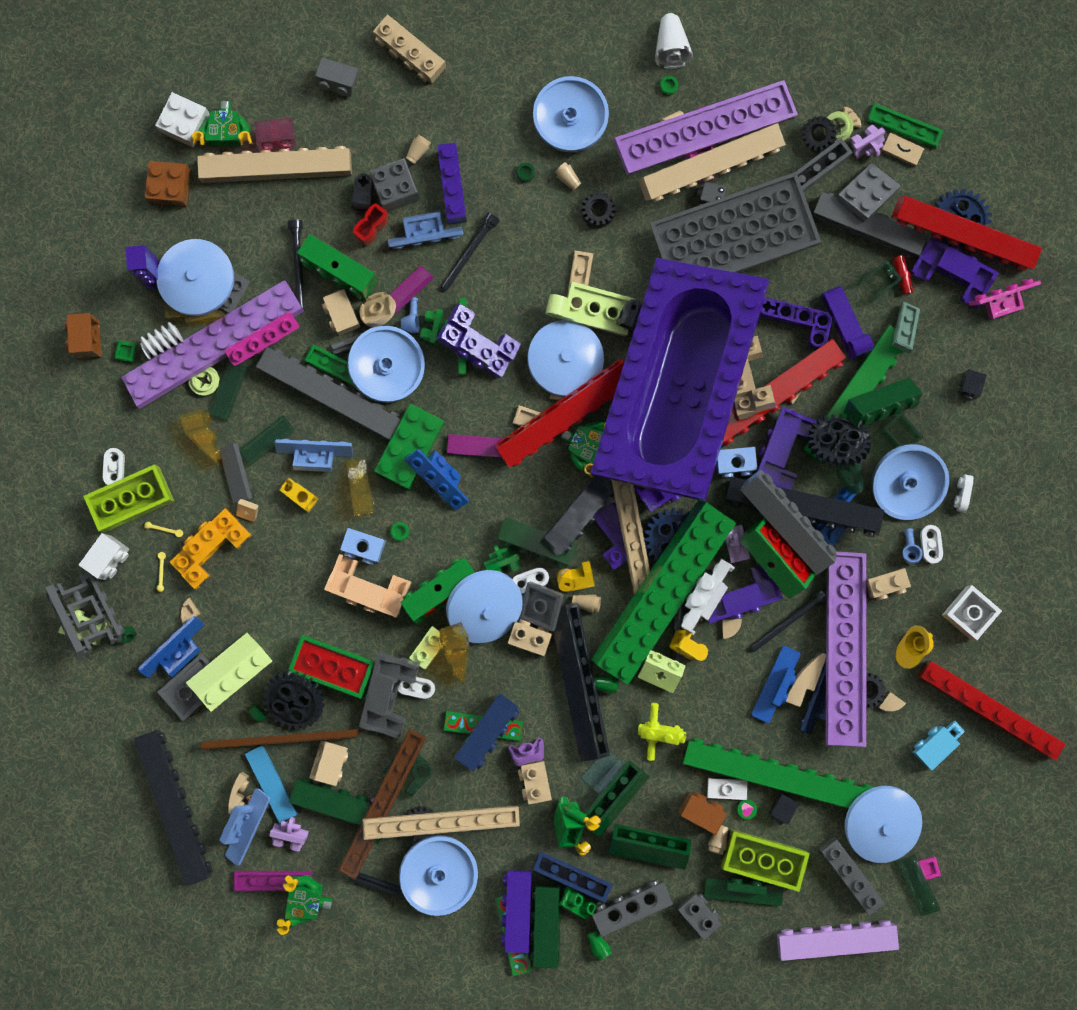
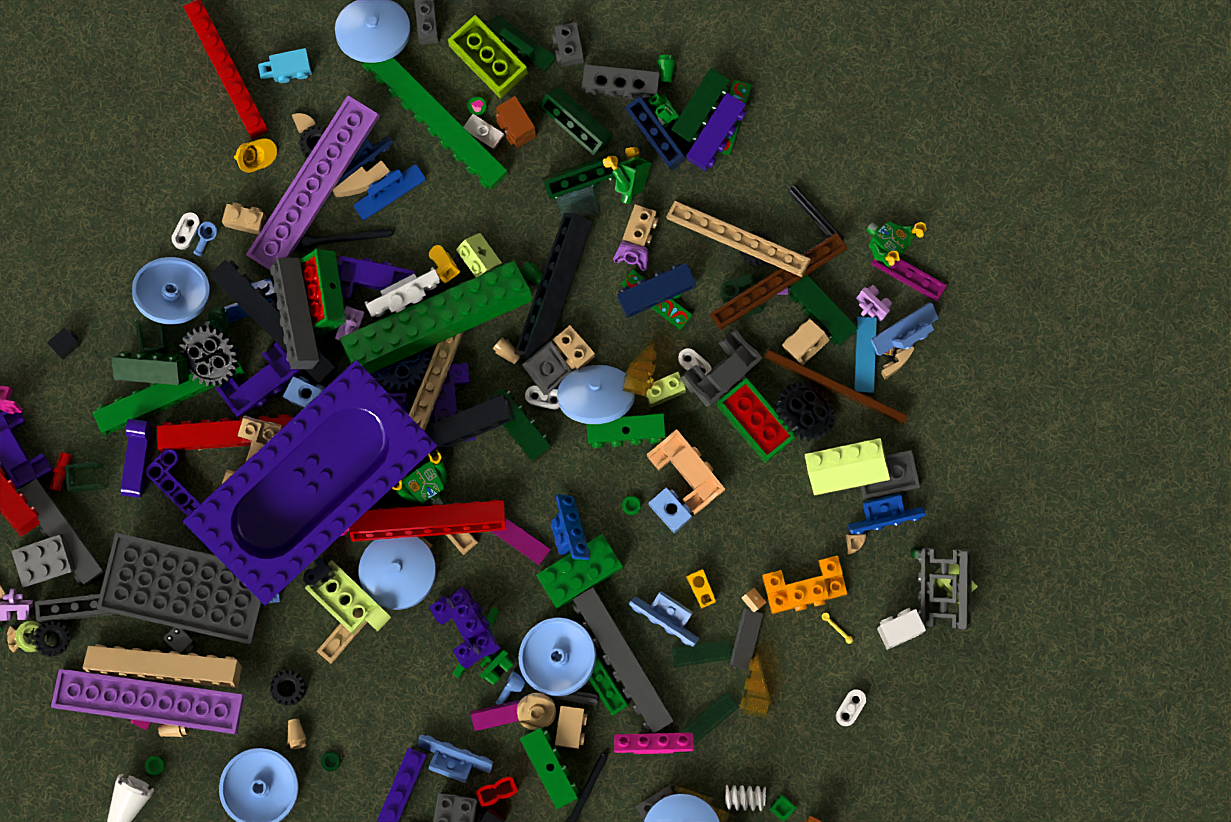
camera: 145 degrees left, 5 degrees down
(128, 498) = (852, 669): lime brick -> none
(161, 556) = (852, 605): light yellow hinge -> none
(173, 807) = (960, 382): black brick -> none
(195, 384) = (726, 749): yellowish green gear -> none
(207, 345) = (703, 768): medium lavender plate -> none
(256, 713) = (844, 420): dark green tile -> none
(360, 486) = (643, 563): clear yellow slope -> none
(438, 875) = (765, 198): light blue dish -> none
(489, 222) = (390, 733): black piece -> none
(501, 558) = (558, 429): green hips -> none
(575, 578) = (503, 375): yellow leg -> none
(654, 732) = (515, 210): neon yellow piece -> none
(719, 841) = (517, 90): tan cone -> none
(730, 627) = (398, 259): tan tile -> none
(783, 809) = (447, 88): black brick -> none
(906, 327) = (88, 423): sand green tile -> none
(962, 501) = (126, 261): white plate -> none
(971, 613) = (190, 154): white brick -> none

